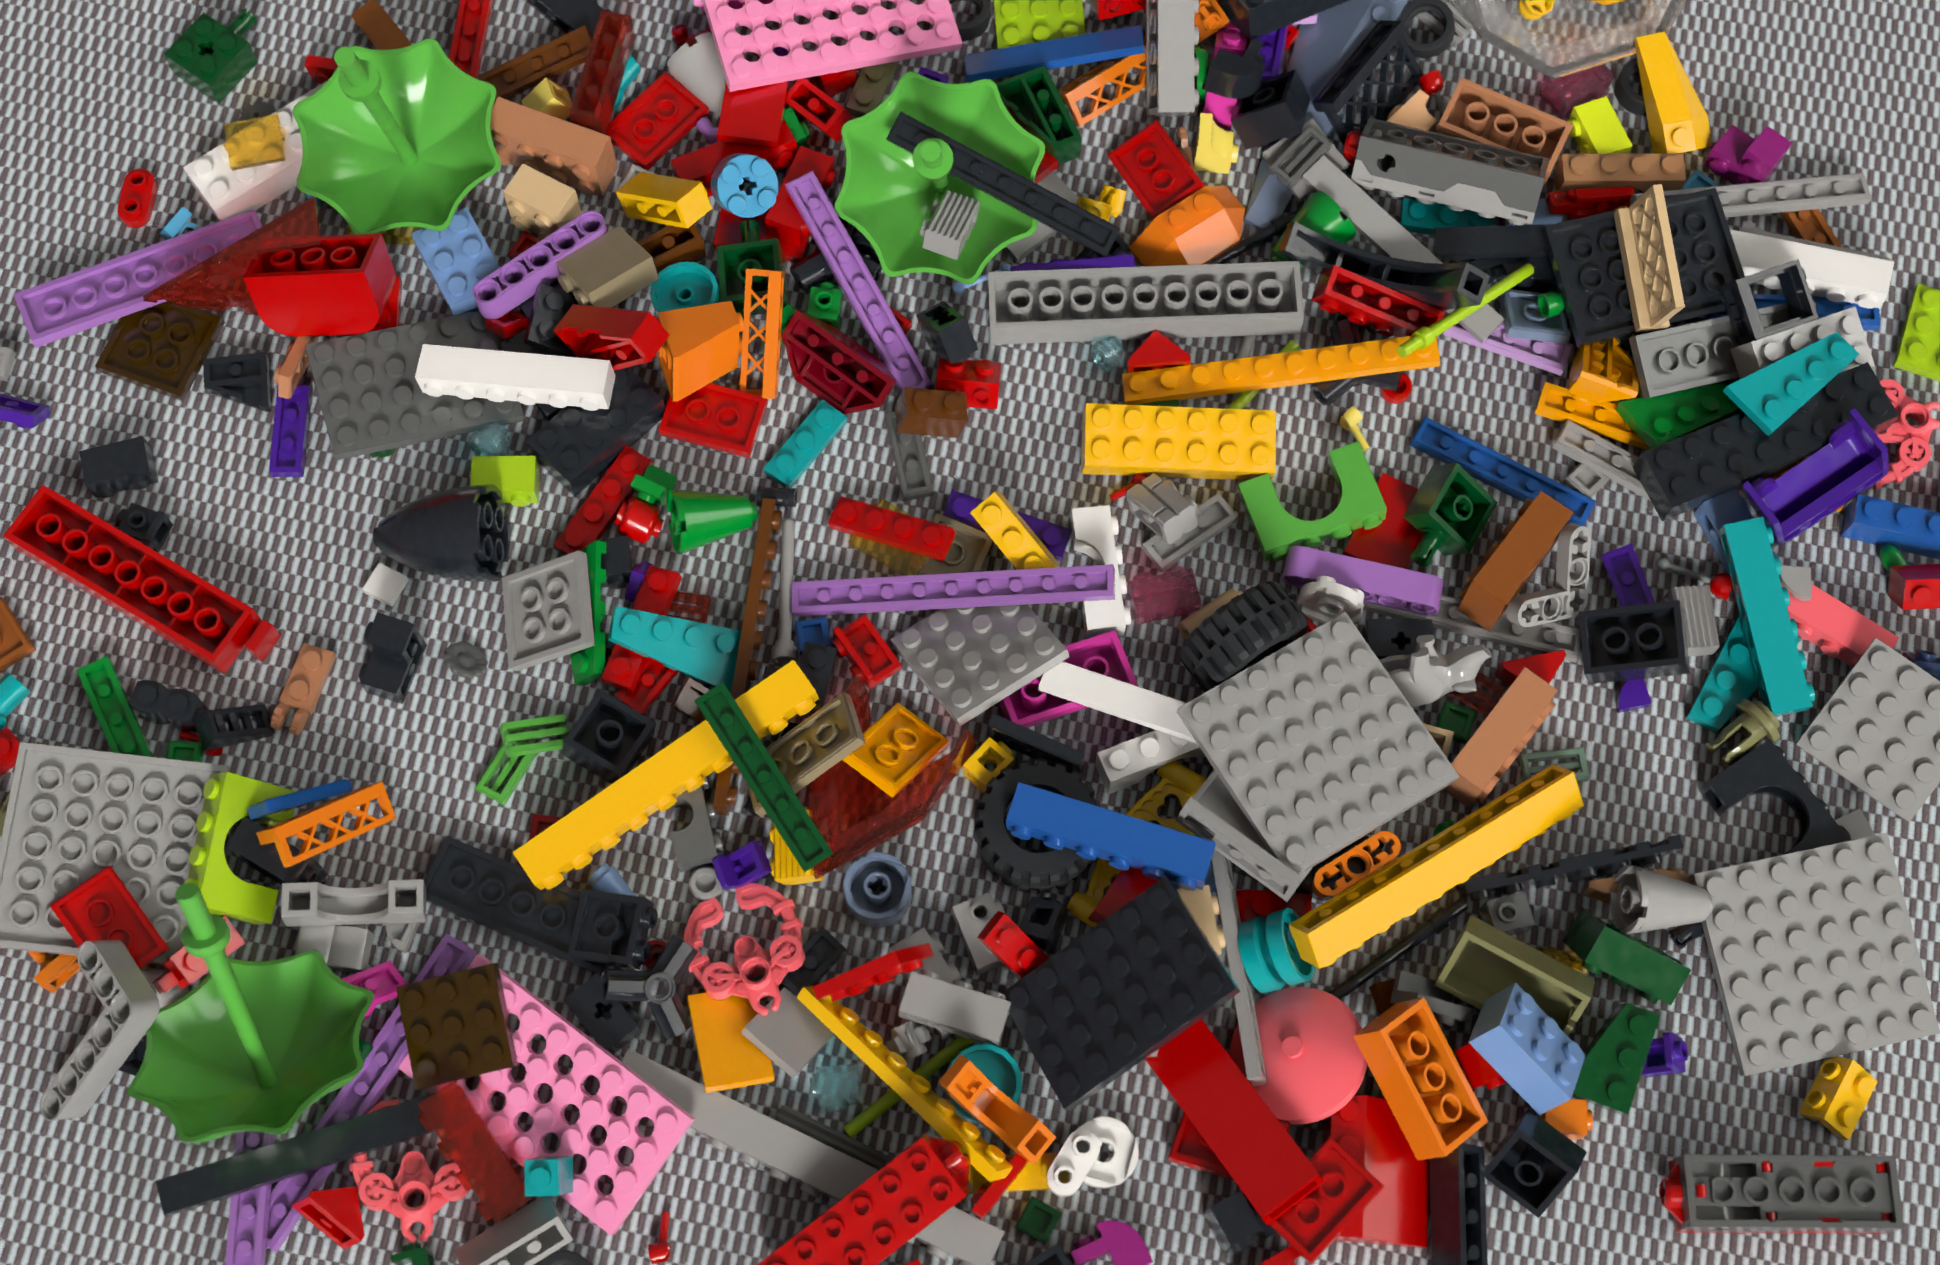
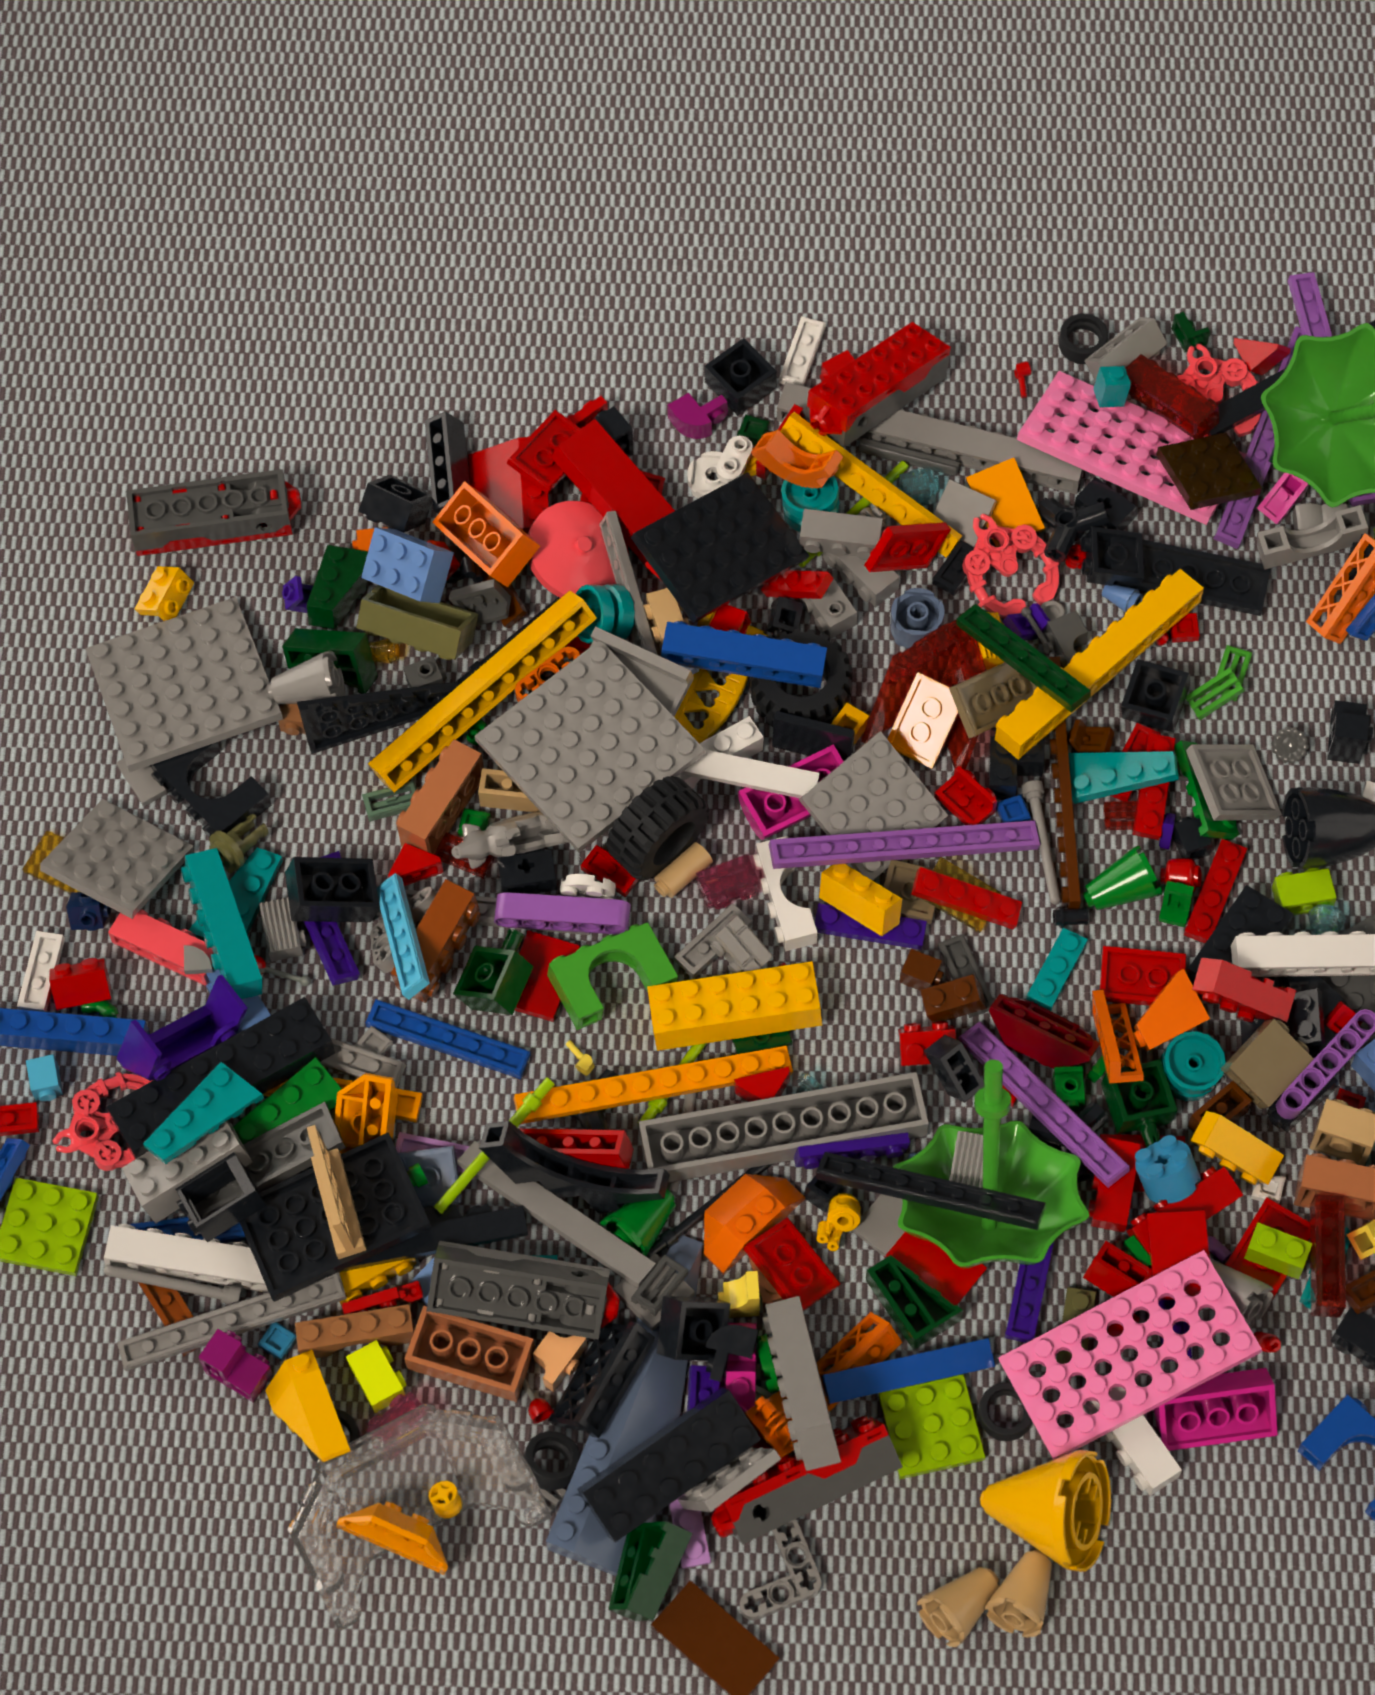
camera: 175 degrees right, 5 degrees down
(650, 97) = (1278, 1251): none -> lime brick
(738, 879) = (1047, 646): none -> dark grey hinge
(959, 457) = (921, 971): none -> reddish brown brick
(1558, 551) = (402, 936): none -> medium azure tile

